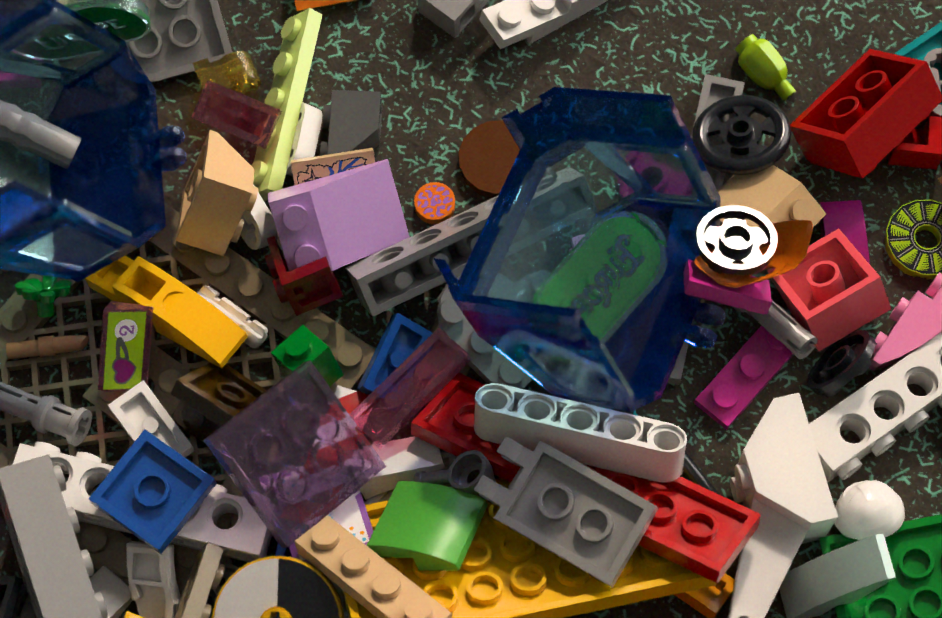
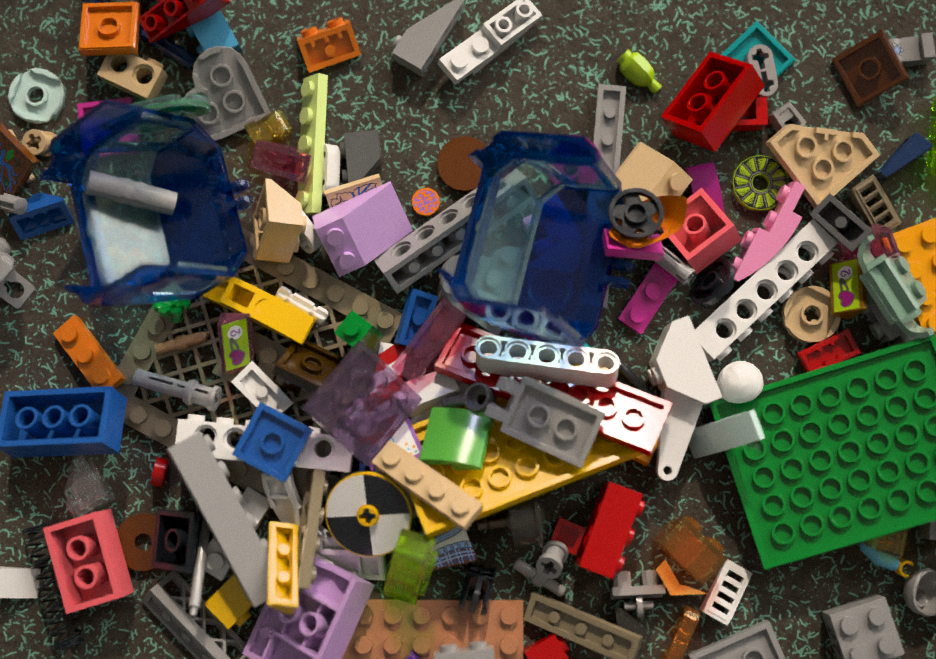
camera: 10 degrees left, 15 degrees up
(304, 286) = (349, 281): dark red bracket -> none
(608, 272) = (547, 253): clear light blue tile -> none
(741, 134) = (643, 144): black plate -> none

